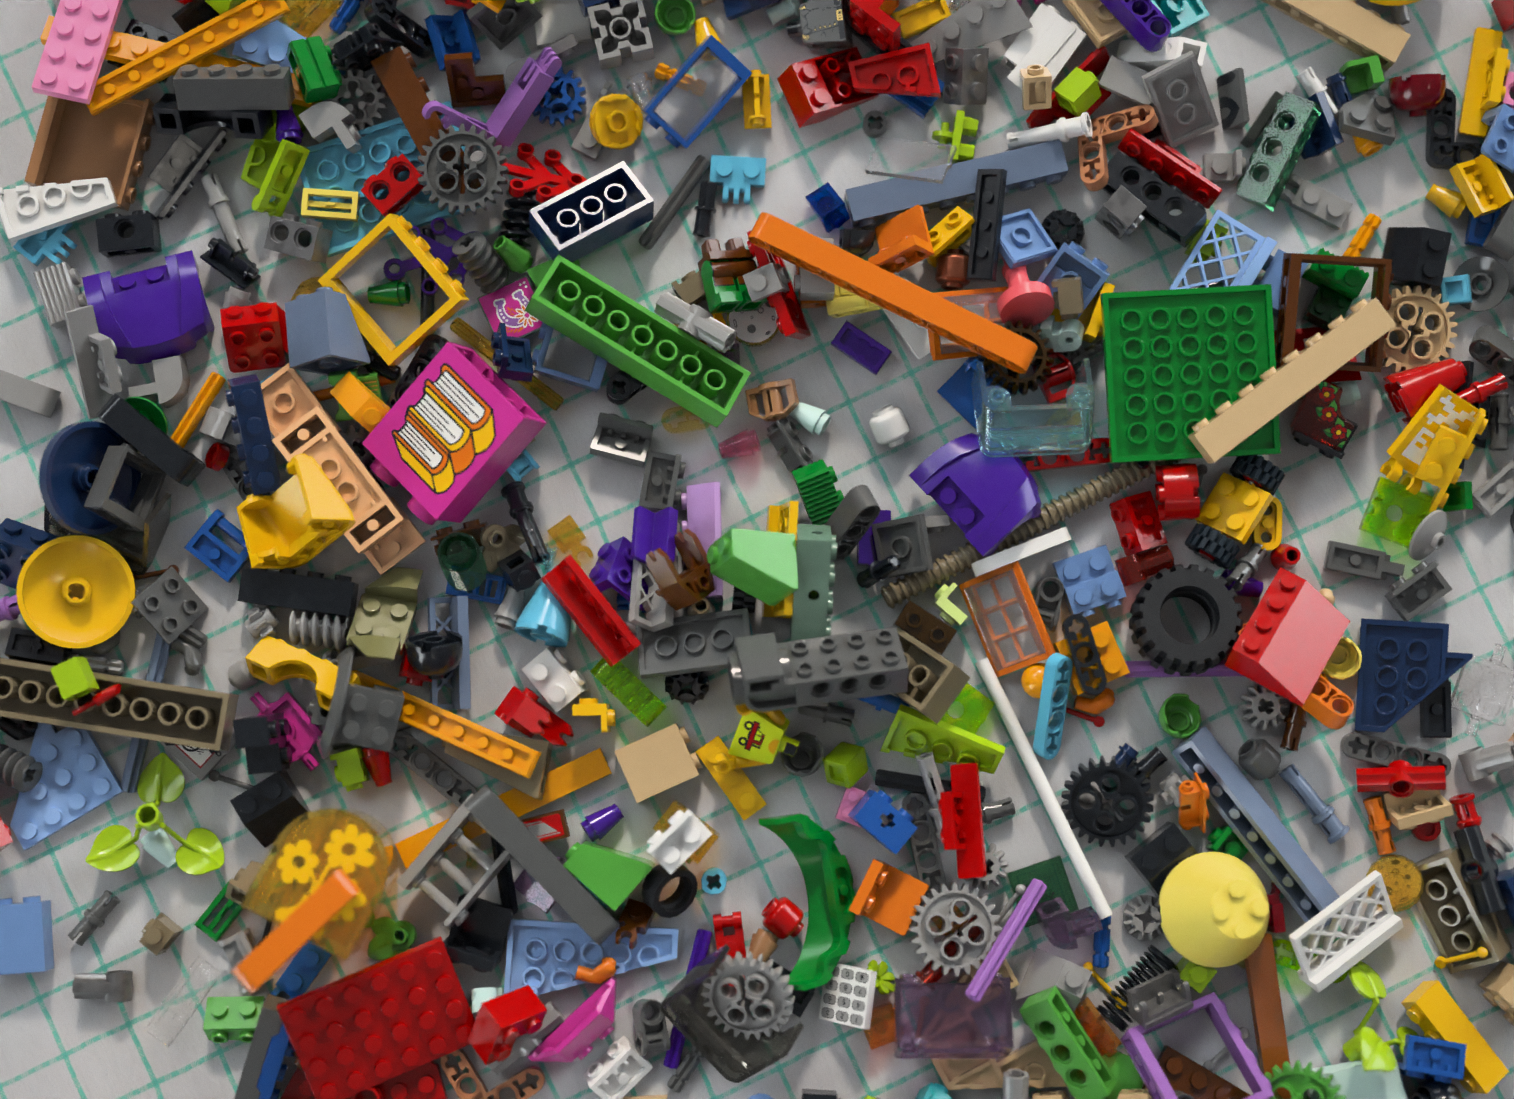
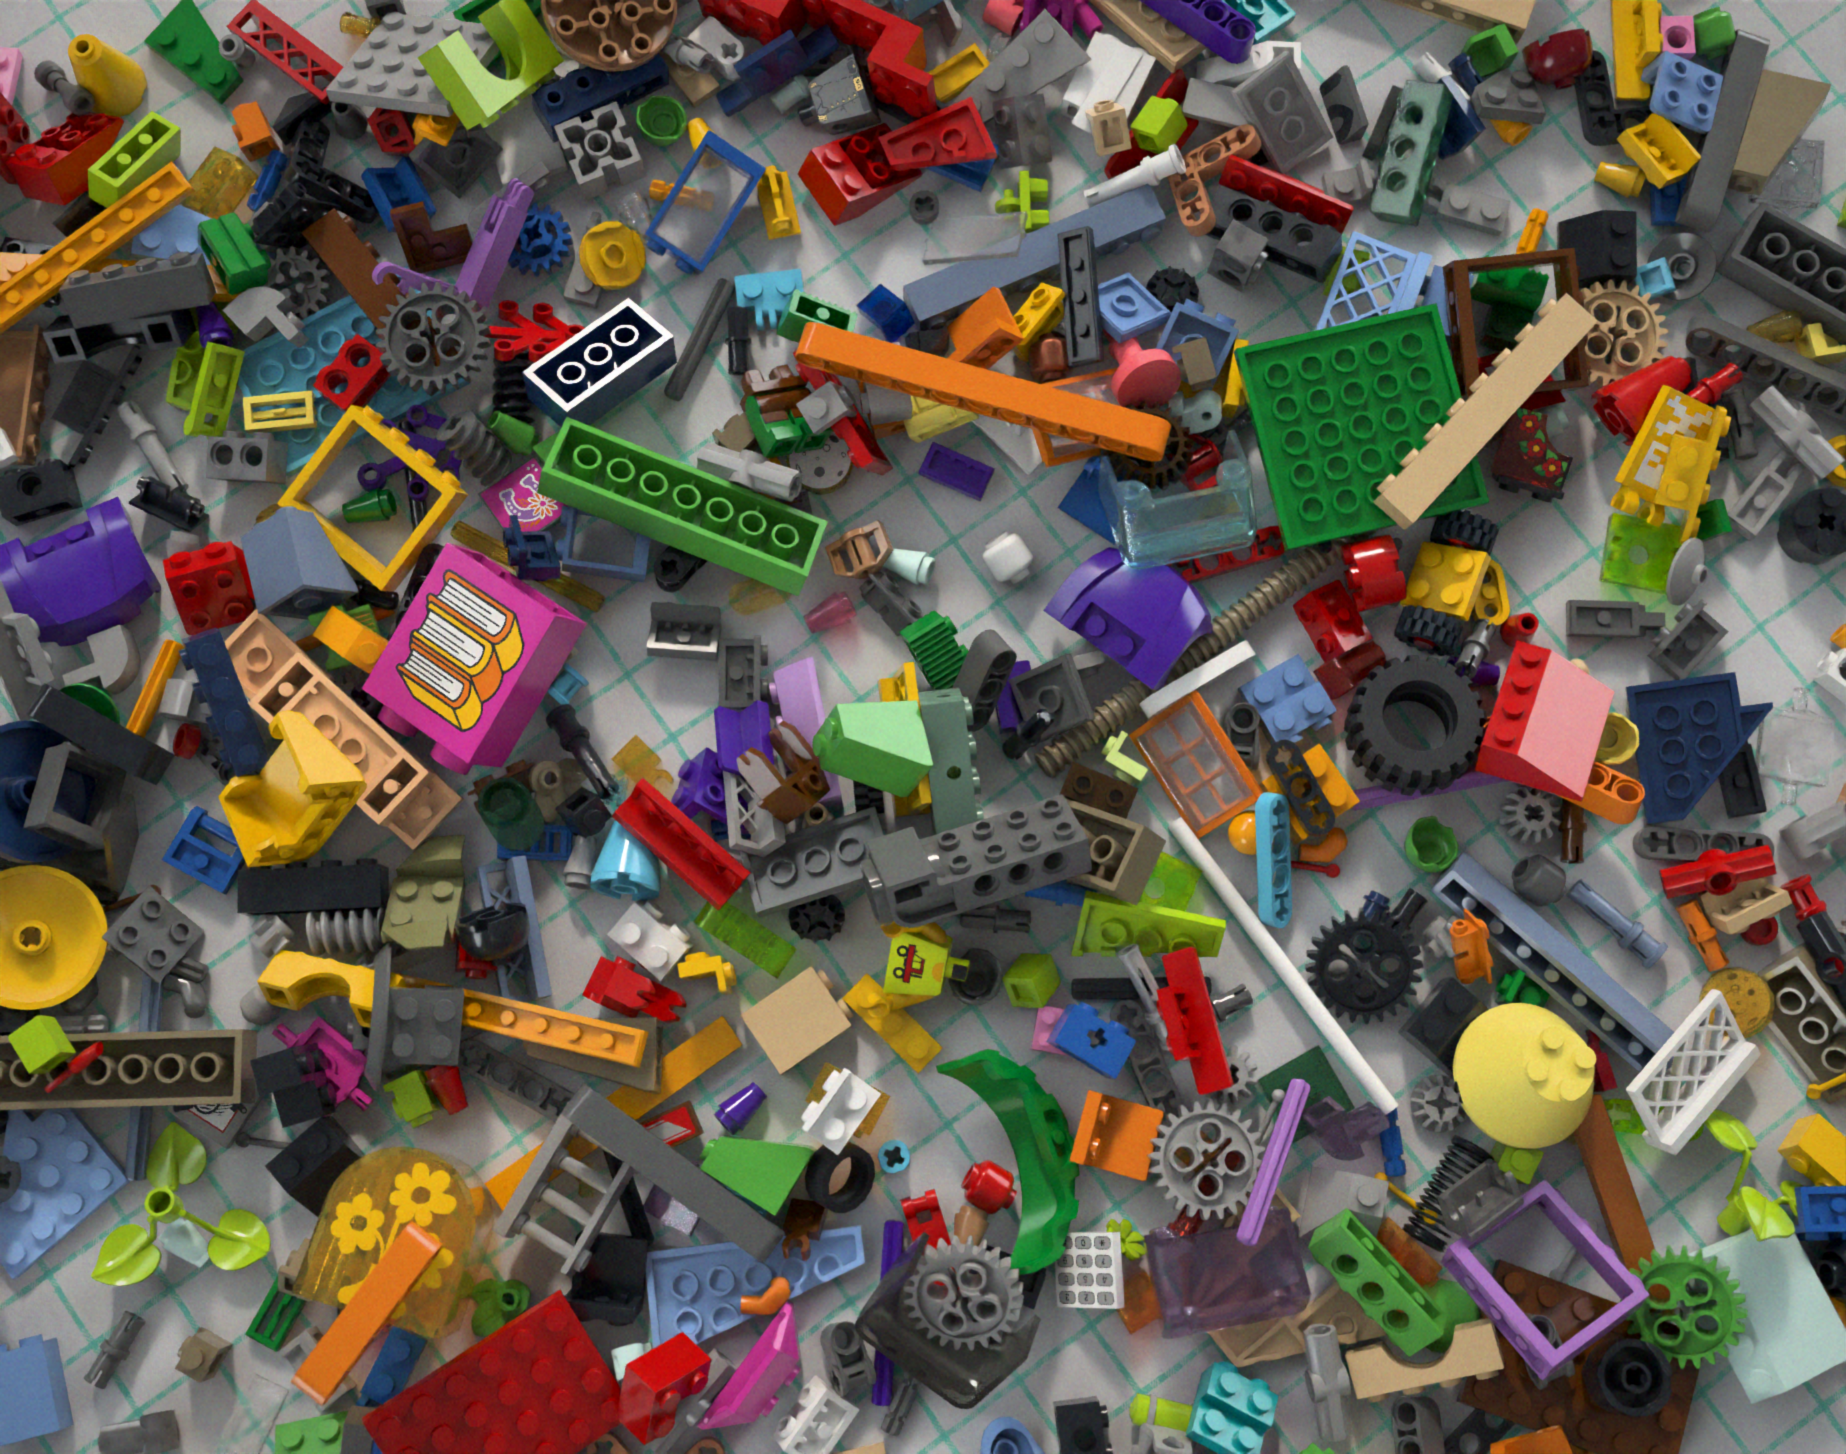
camera: 10 degrees left, 5 degrees down
(765, 199) = (804, 309): none -> green brick

